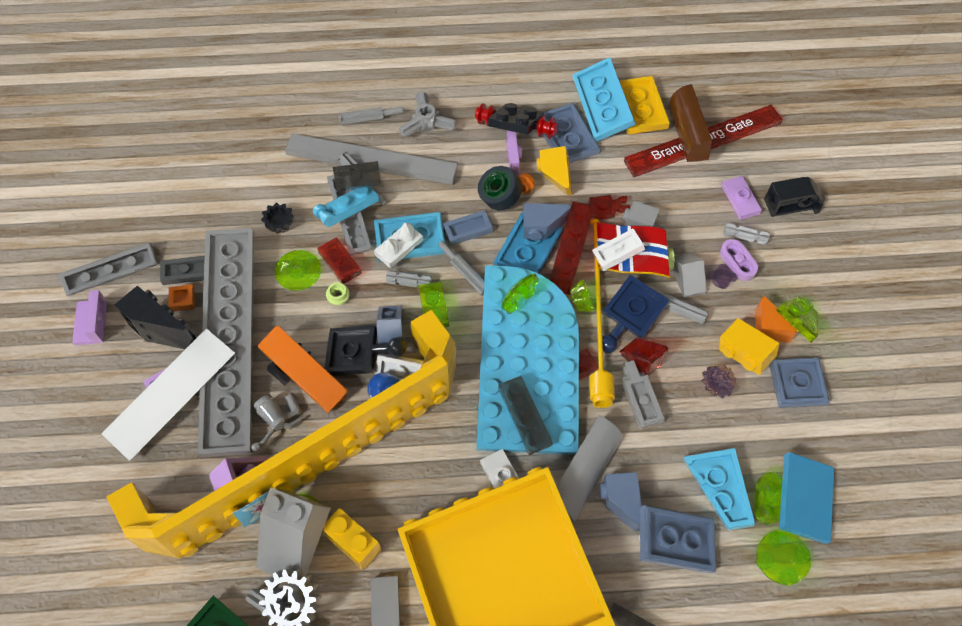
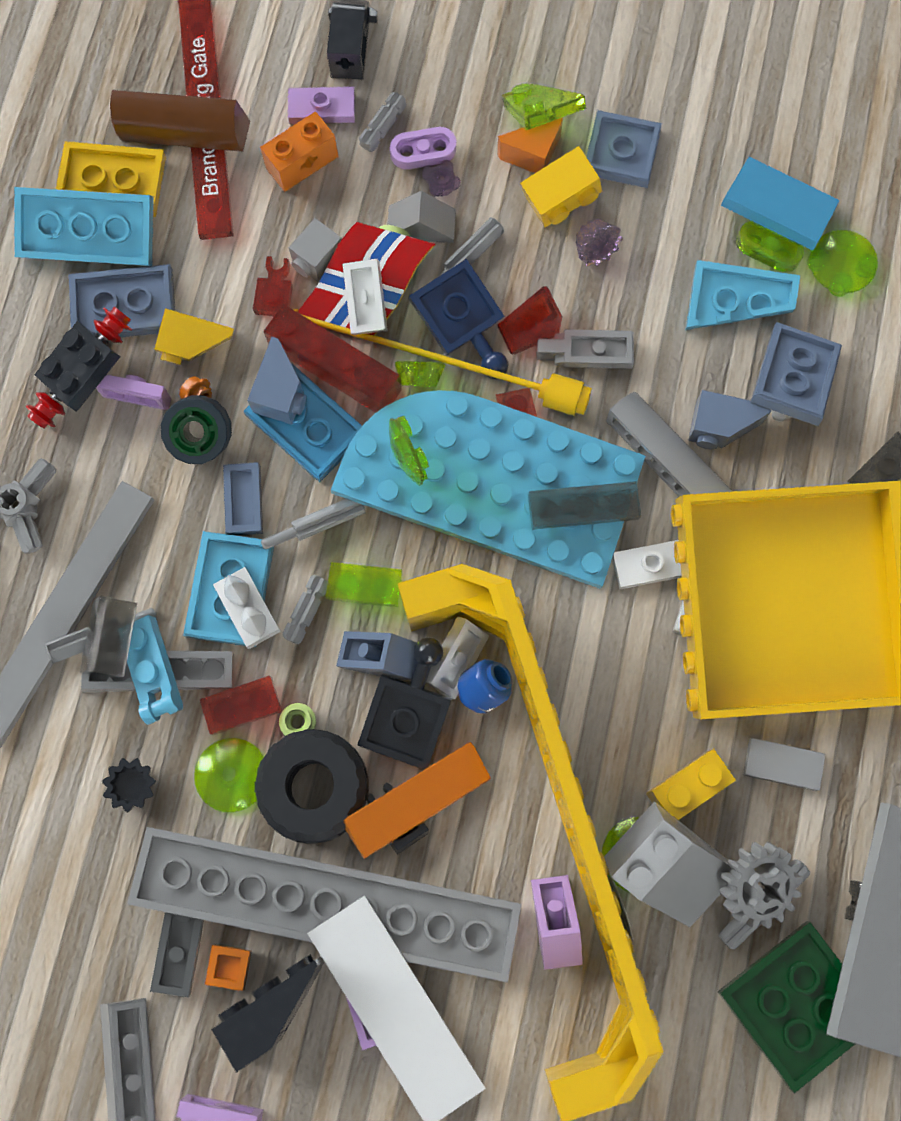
camera: 70 degrees left, 15 degrees up
(270, 411) = (468, 861): light grey piece -> none
(293, 291) = (276, 777): none -> black tyre
(701, 191) = (299, 151): none -> orange brick

